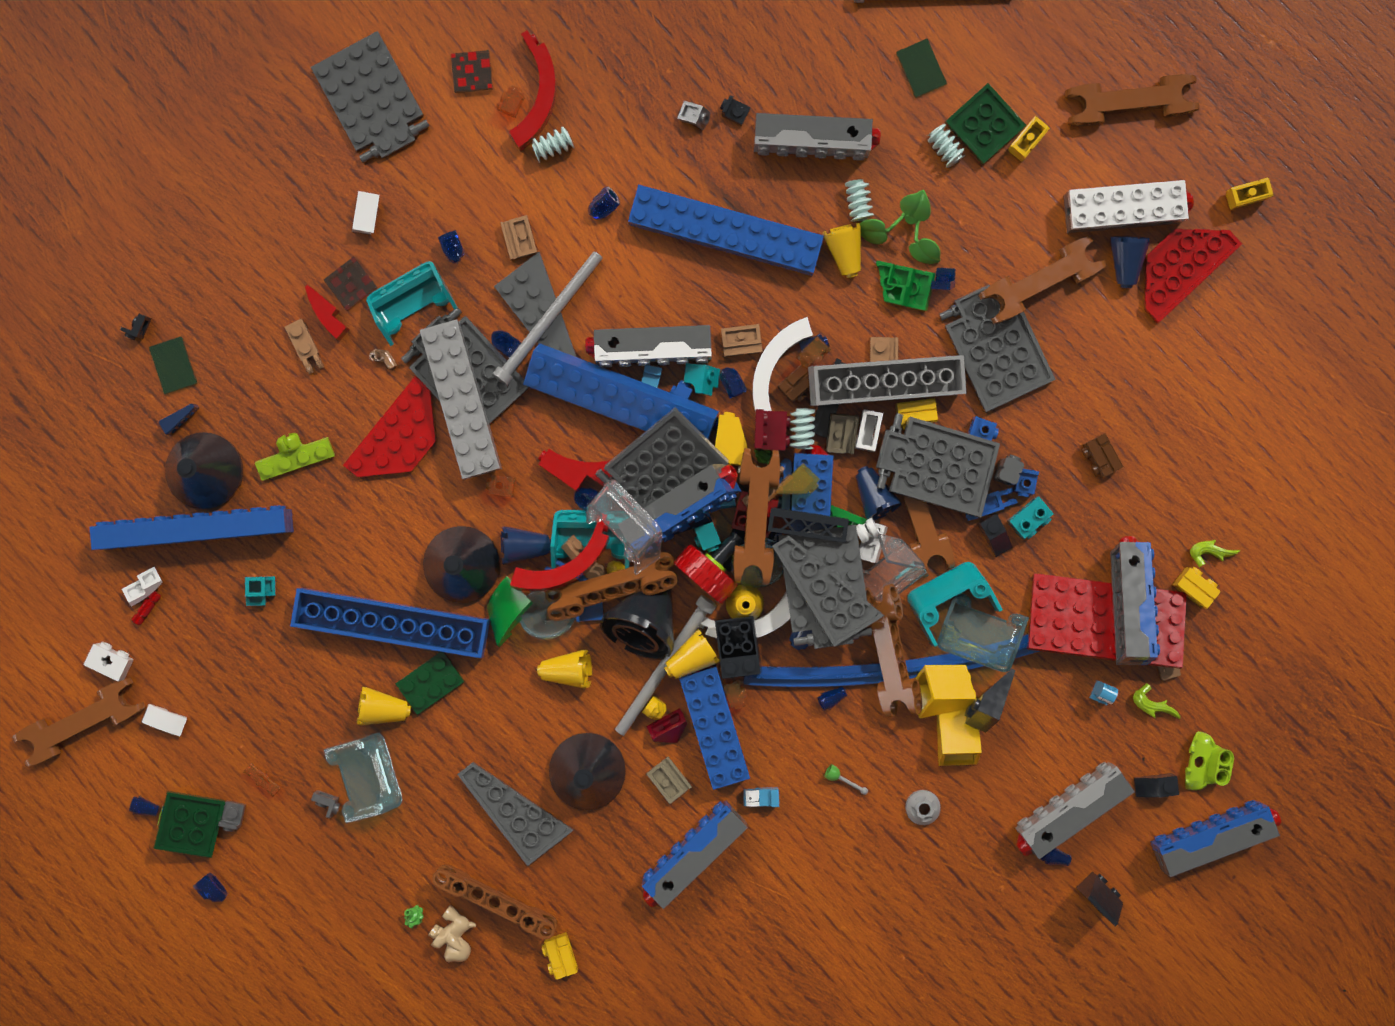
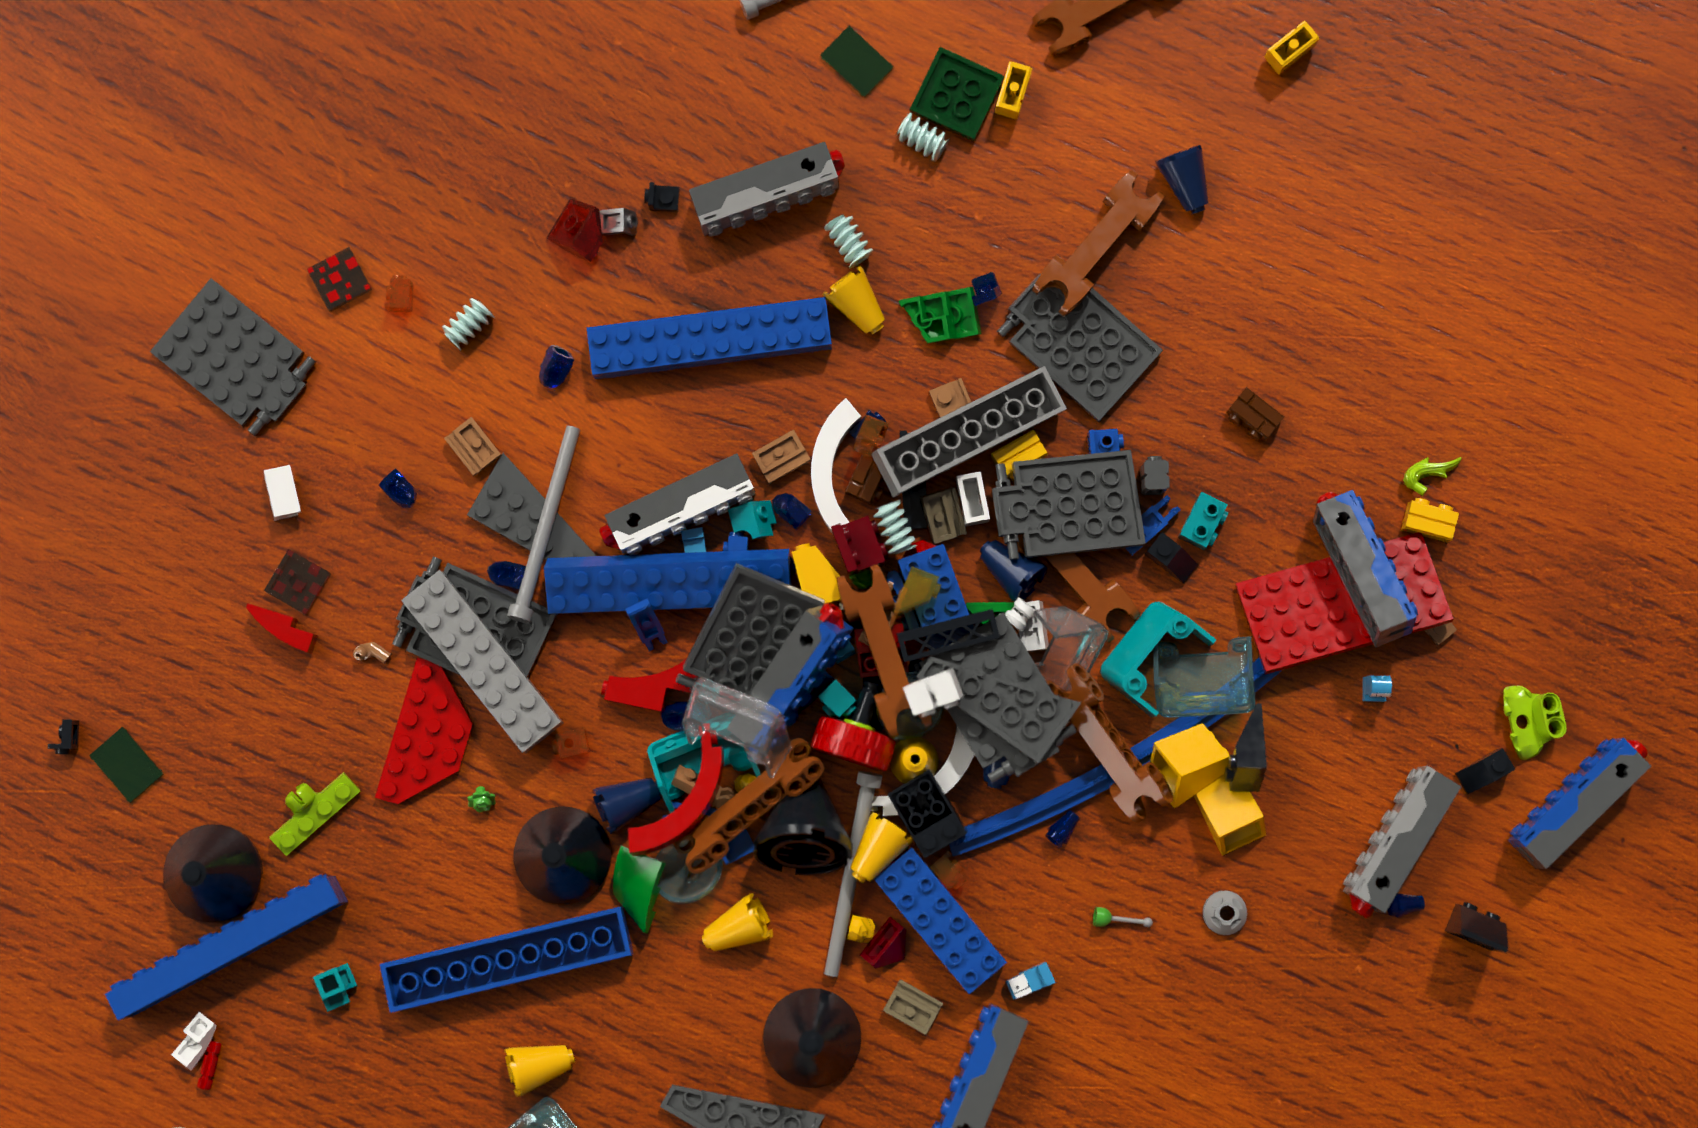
camera: 25 degrees left, 5 degrees down
(177, 419) = (156, 826): dark blue slope -> none
(304, 344) = (271, 675): medium nougat hinge -> none
(407, 296) = (370, 568): teal windscreen -> none
(419, 499) = (481, 800): none -> bright green plant
(430, 682) = (582, 1011): dark green plate -> none
(542, 109) = (439, 284): red arch -> none
(591, 422) = (646, 623): none -> blue hinge
(662, 108) = (578, 230): none -> clear red slope
(779, 562) = (933, 692): none -> white piece
(915, 209) = (918, 223): bright green plant -> none
(1022, 490) = (1175, 491): blue brick -> none
(1127, 206) = (1159, 119): white piece -> none
(1152, 707) = (1438, 681): lime piece -> none
(1183, 264) = (1250, 160): red plate -> none

